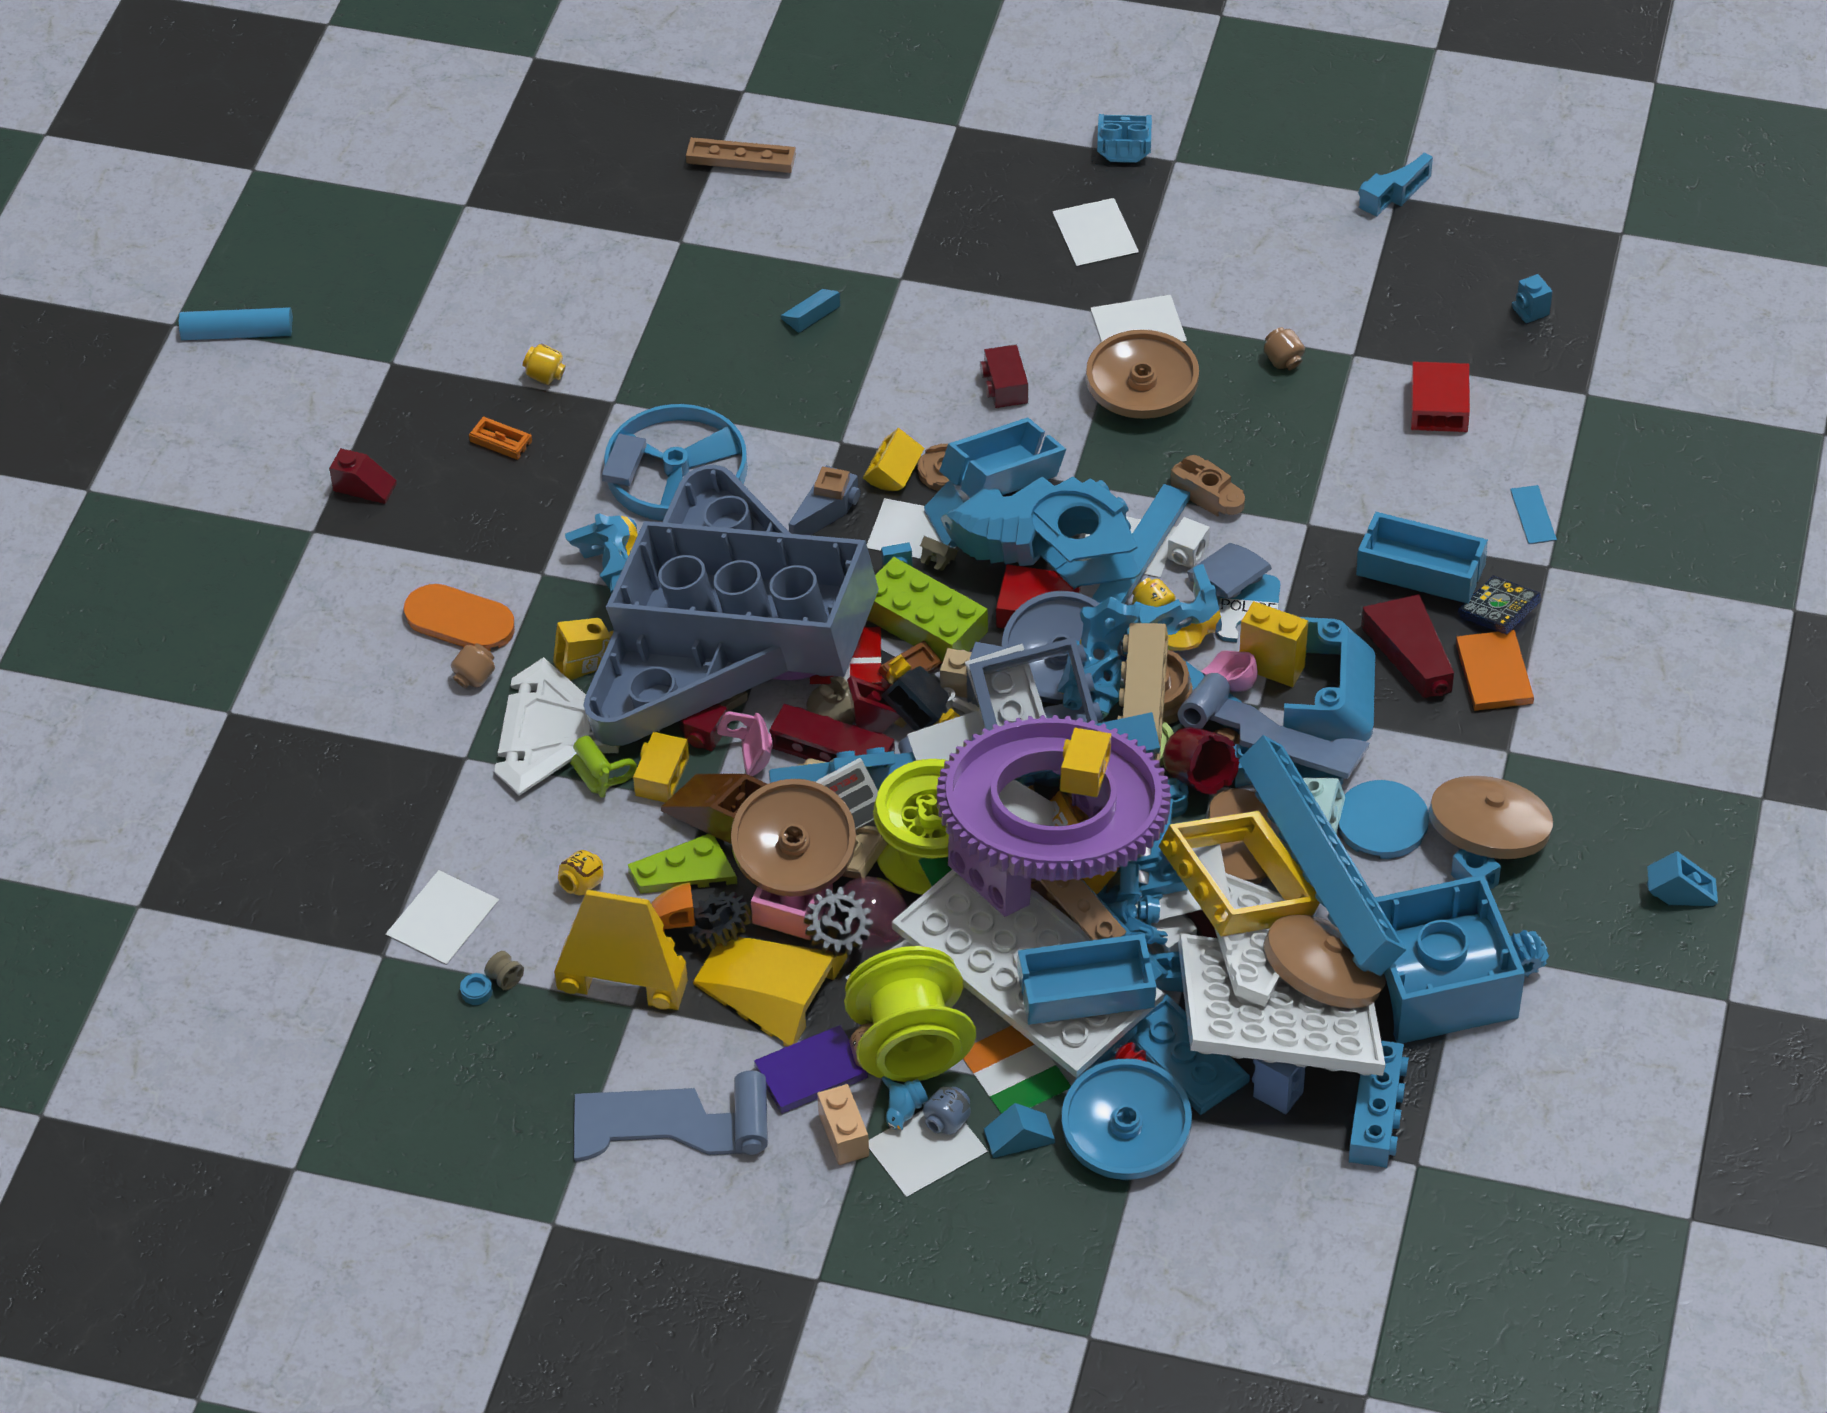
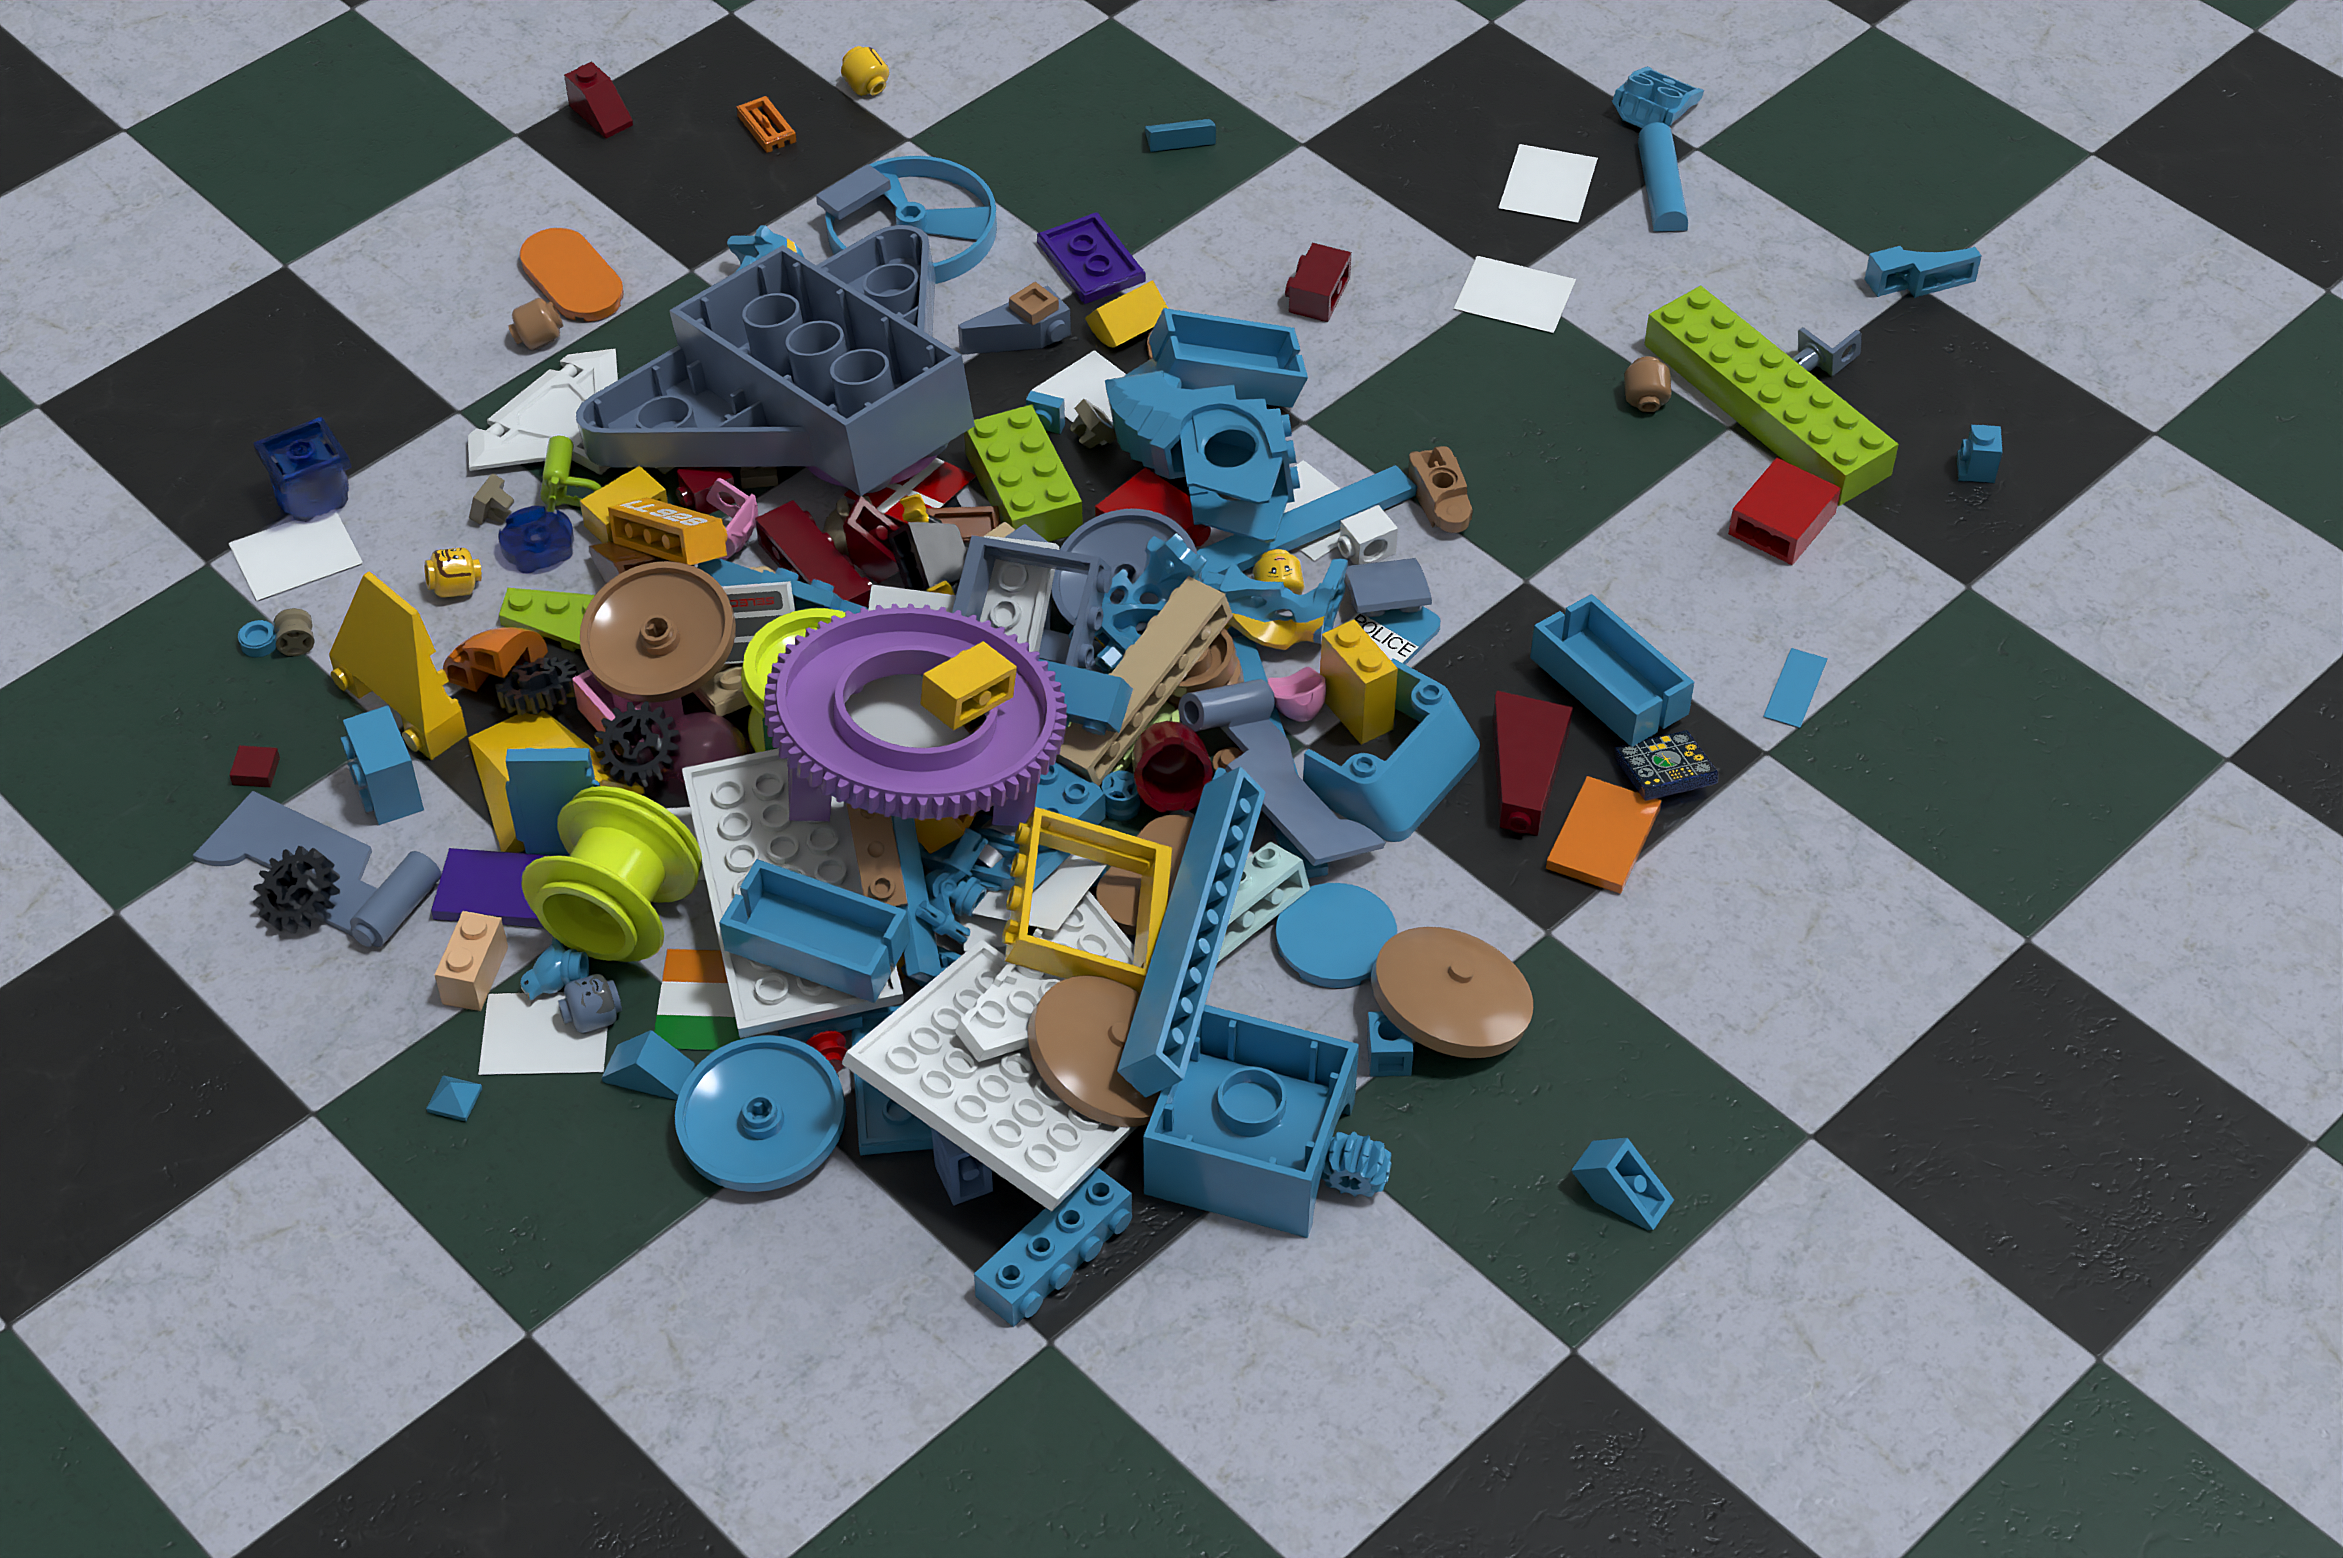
camera: 30 degrees right, 0 degrees up
(412, 849) = (306, 469): none -> clear blue piece
(560, 809) = (491, 502): none -> dark tan tile
(560, 1076) = (254, 766): none -> dark red tile
(580, 646) = (643, 341): yellow torso -> none
(620, 833) = (528, 554): none -> clear blue plate
(666, 1026) = (381, 765): none -> dark azure brick
(667, 1144) = (296, 889): none -> black gear
(728, 766) = (668, 531): none -> light orange brick
(824, 981) = (538, 790): none -> dark azure piece
(826, 431) = (1091, 258): none -> dark purple tile
(906, 1219) = (454, 1098): none -> dark azure slope
(1142, 374) = (1464, 341): medium nougat dish -> none
(1173, 194) = (1662, 178): none -> dark azure brick
(1366, 317) = (1769, 393): none -> lime brick
(1376, 275) = (1815, 352): none -> sand blue bracket

